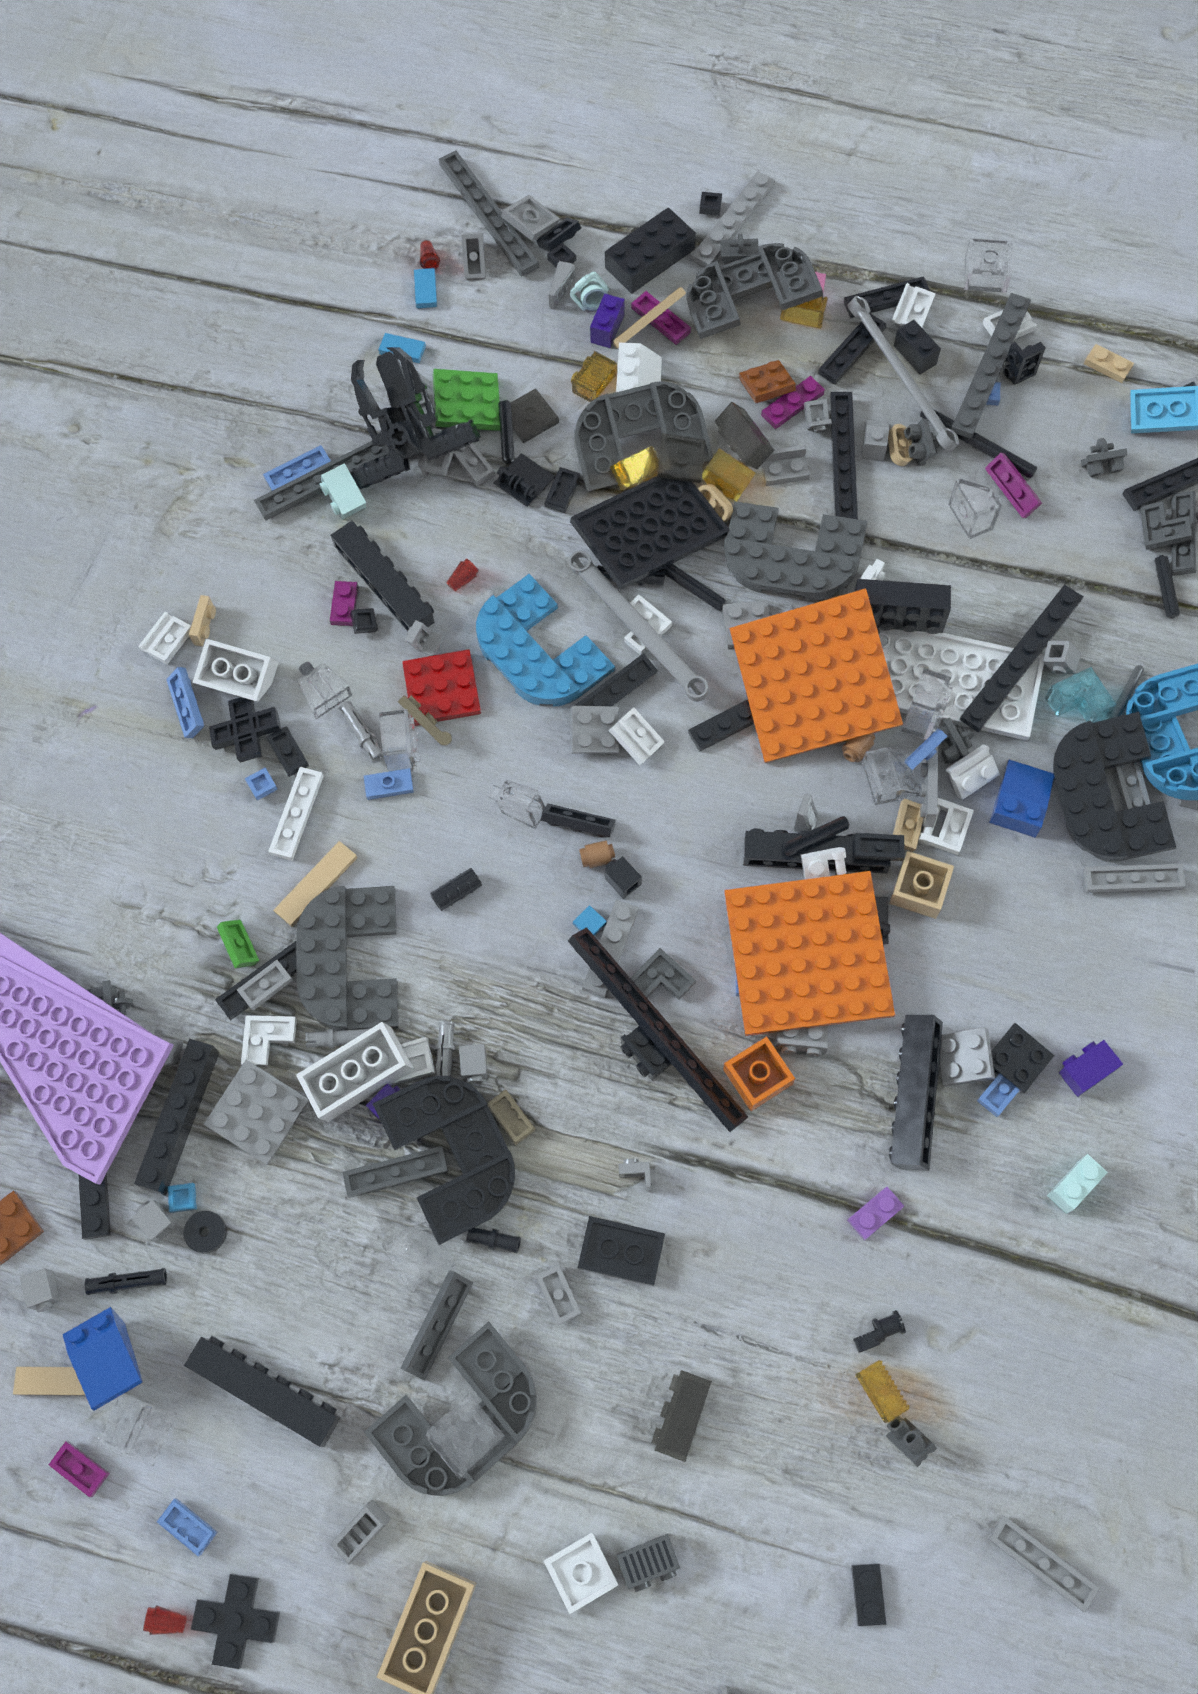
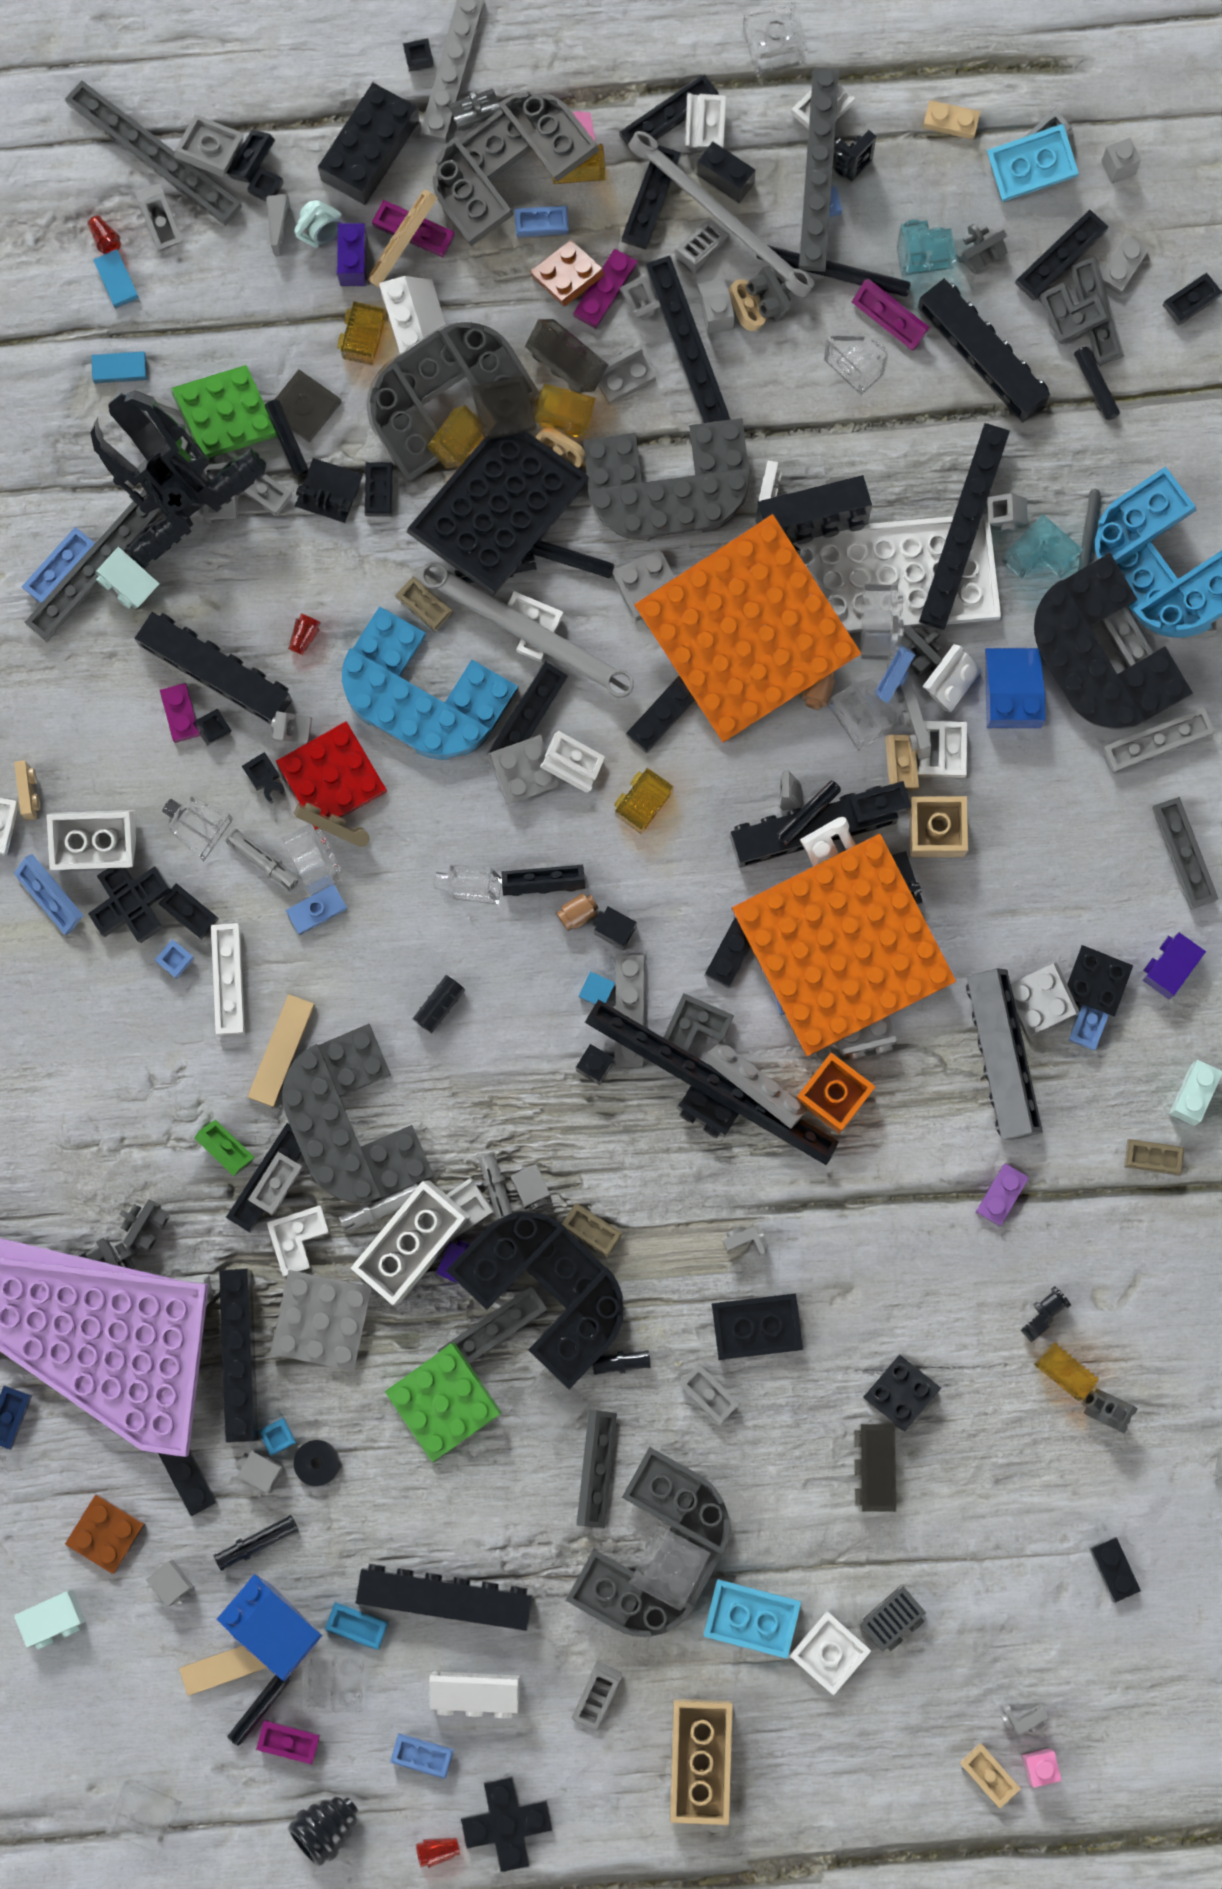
camera: 20 degrees left, 10 degrees up
(66, 1430) = (257, 1710): none -> black axle
(74, 1560) = (323, 1828): none -> black piece
(144, 979) = (150, 1214): none -> dark grey hips
(180, 1387) = (356, 1626): none -> dark azure tile
(253, 1487) = (474, 1693): none -> white slope
(329, 1218) = (443, 1402): none -> bright green plate
(388, 668) = (262, 774): none -> black plate
(522, 1513) = (752, 1618): none -> medium azure plate
(564, 583) = (424, 604): none -> dark tan plate
(564, 980) = (595, 1064): none -> black brick
(683, 785) = (643, 800): none -> clear yellow brick
(694, 1044) = (756, 1084): none -> light grey plate
(709, 932) = (729, 956): none -> black plate
(728, 1356) = (902, 1393): none -> black hinge
(761, 341) = (541, 221): none -> medium blue plate
(871, 404) = (694, 263): none -> light grey slope
(1022, 1228) = (1154, 1157): none -> dark tan plate
(1056, 446) = (924, 249): none -> clear light blue brick
(1081, 534) = (984, 350): none -> black brick
(1129, 978) = (1185, 853): none -> dark grey plate

